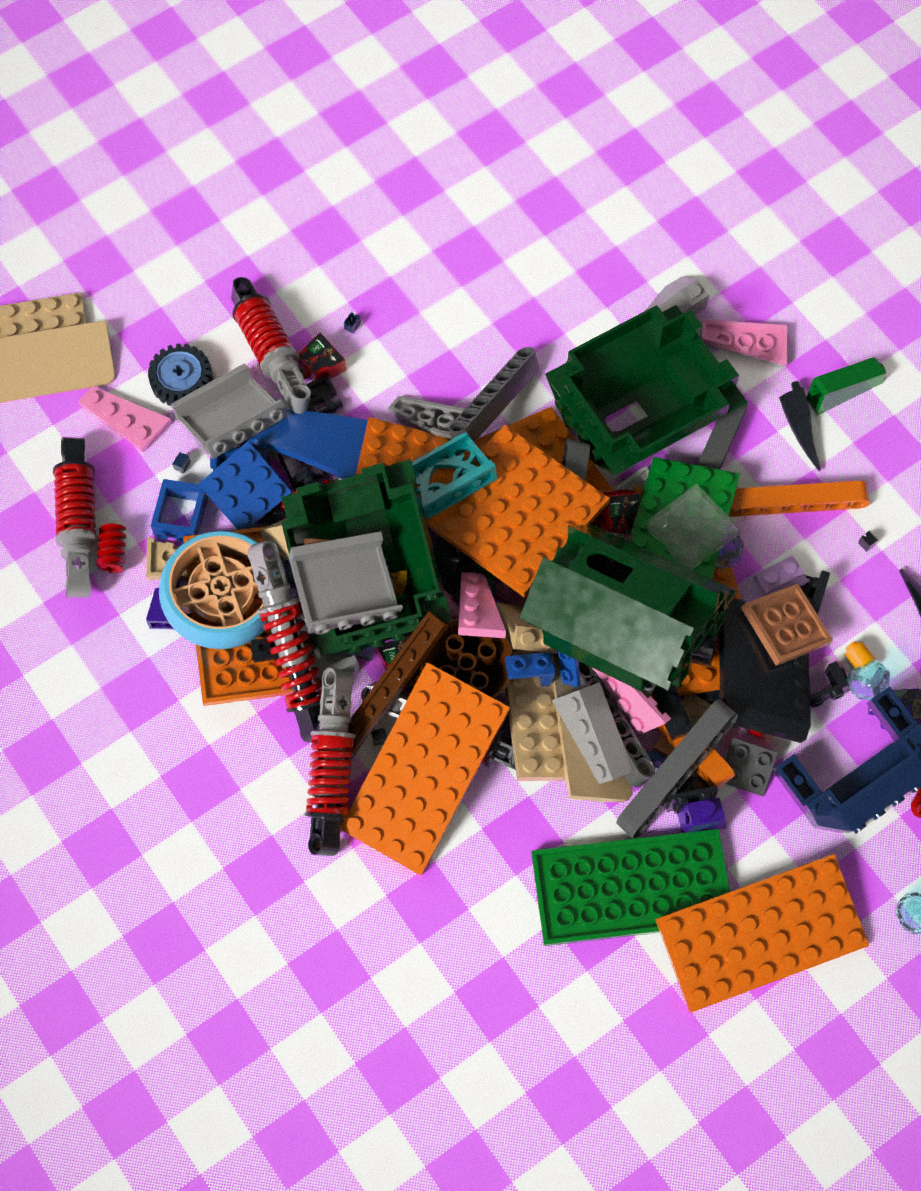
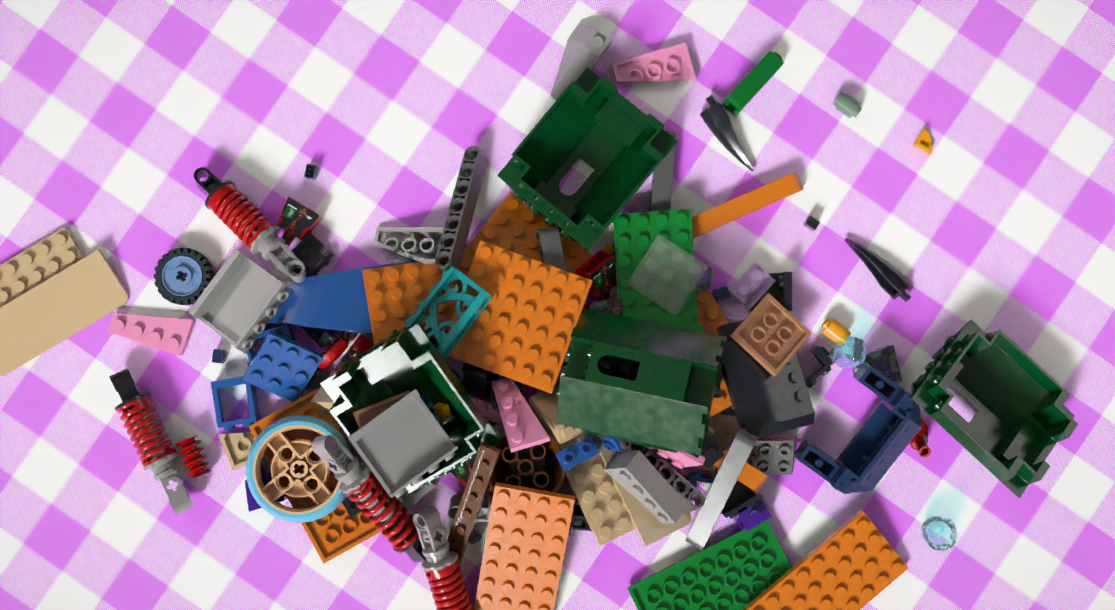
camera: 20 degrees left, 20 degrees up
(744, 579) = (721, 293): none -> dark blue piece

